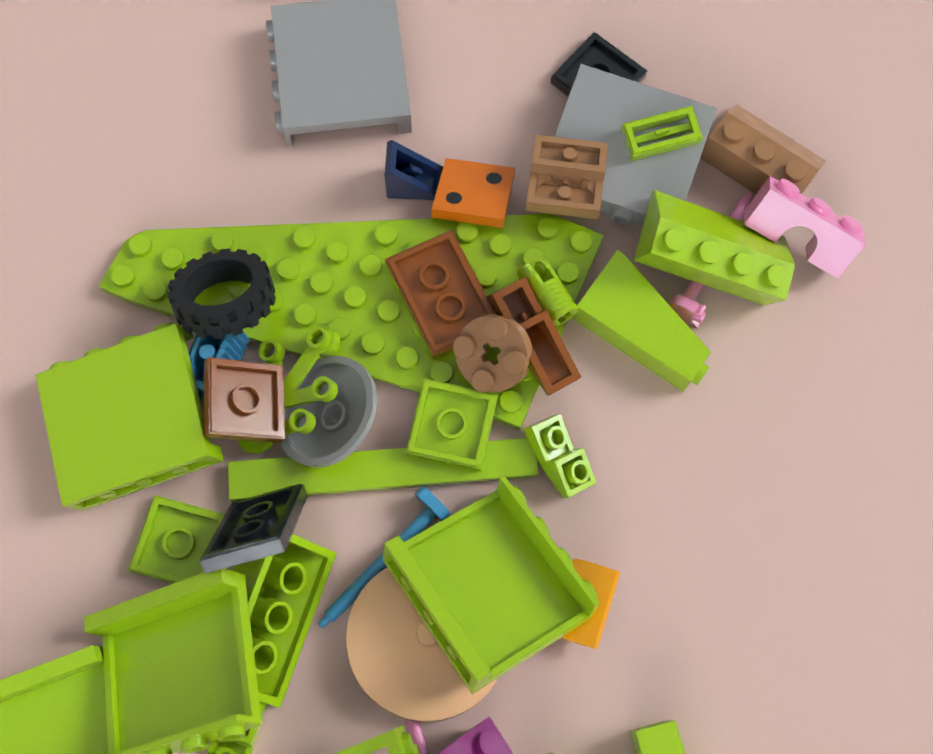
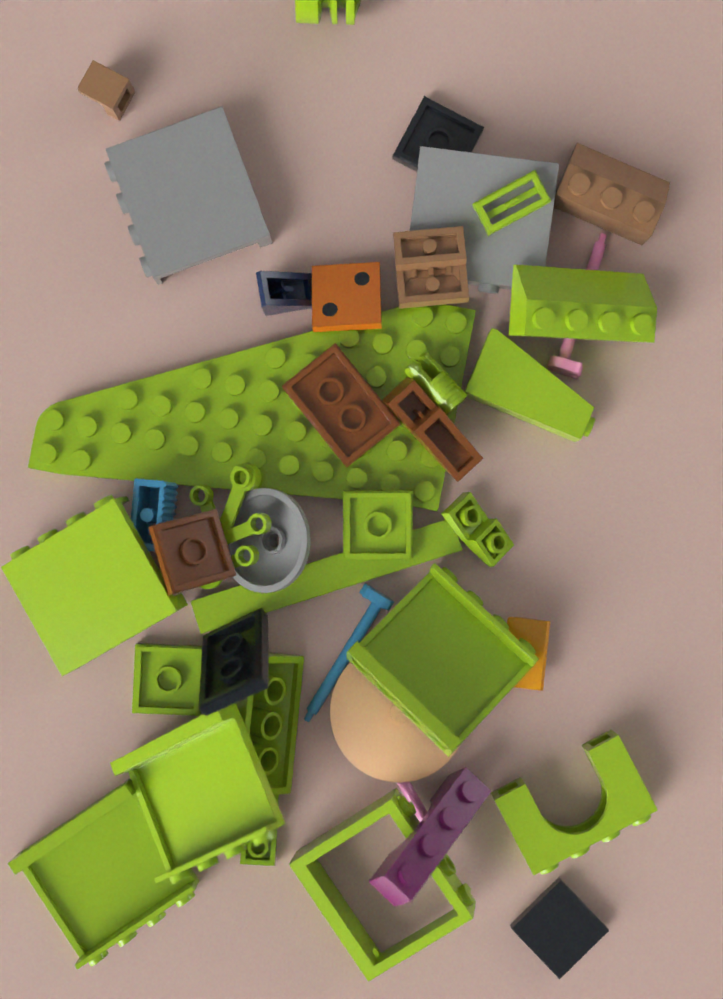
camera: 10 degrees left, 15 degrees up
(229, 316) = (128, 433): black tyre -> none
(472, 348) = (392, 473): medium nougat plate -> none
(781, 206) = (637, 252): bright pink arch -> none

